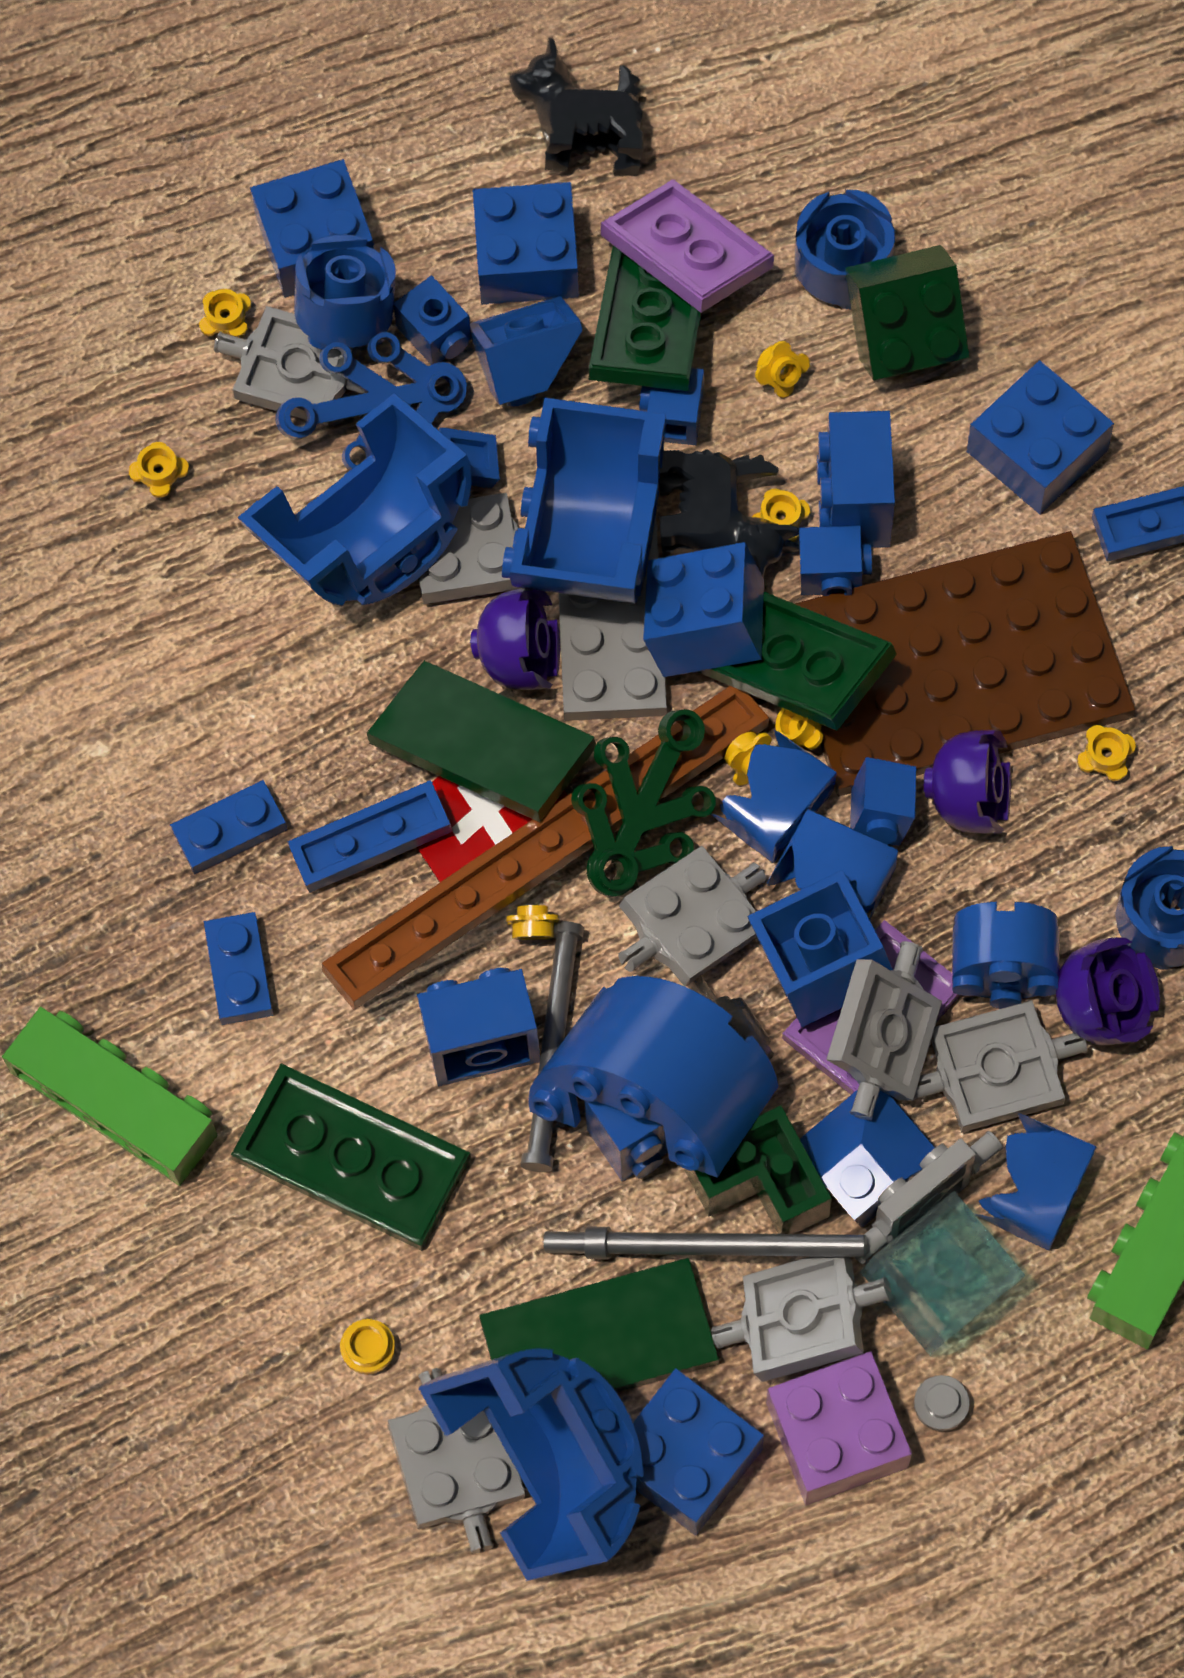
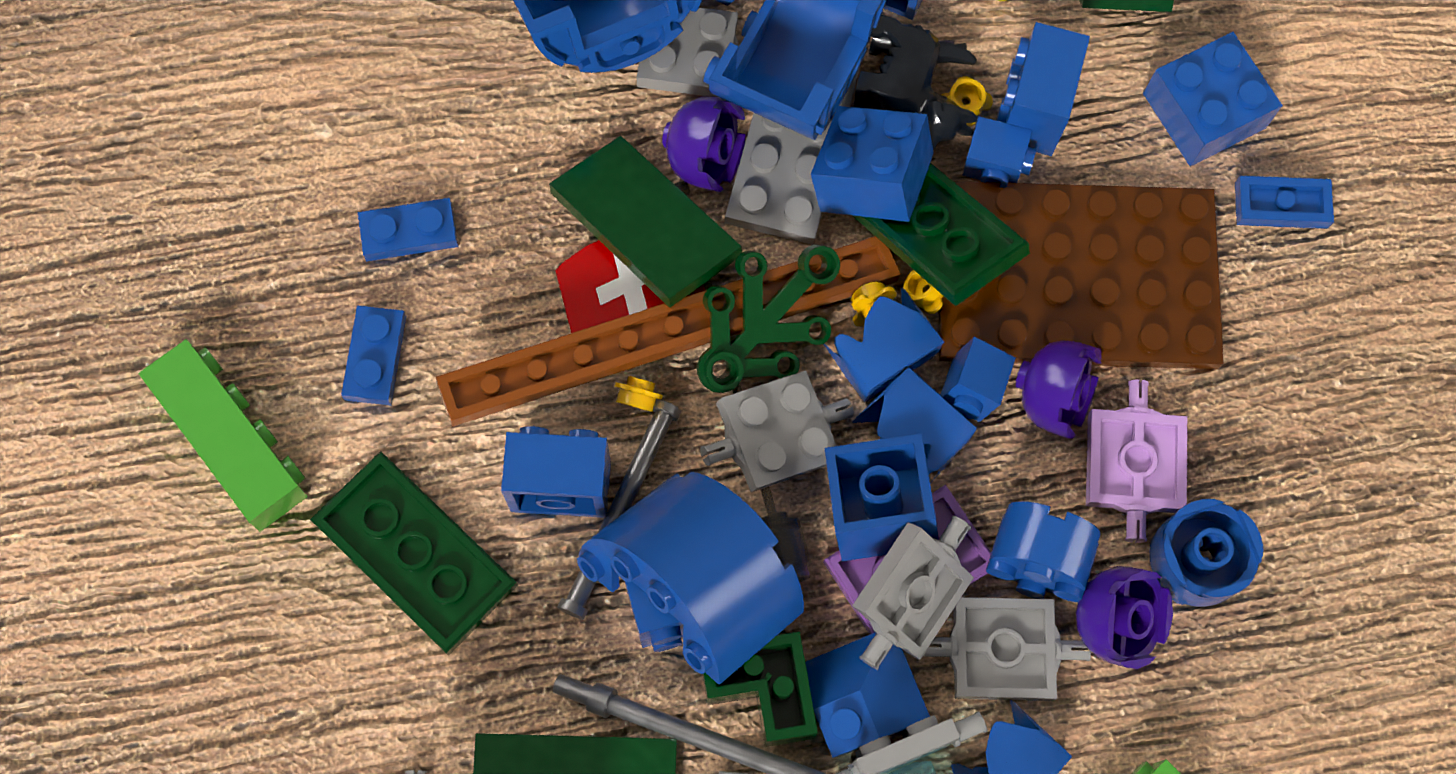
camera: 10 degrees right, 5 degrees up
(367, 1346) = (369, 730): yellow plate -> none
(370, 836) = (522, 274): blue plate -> none
(1074, 835) = (1136, 461): none -> lavender plate
(1108, 738) = (1189, 381): yellow plate -> none

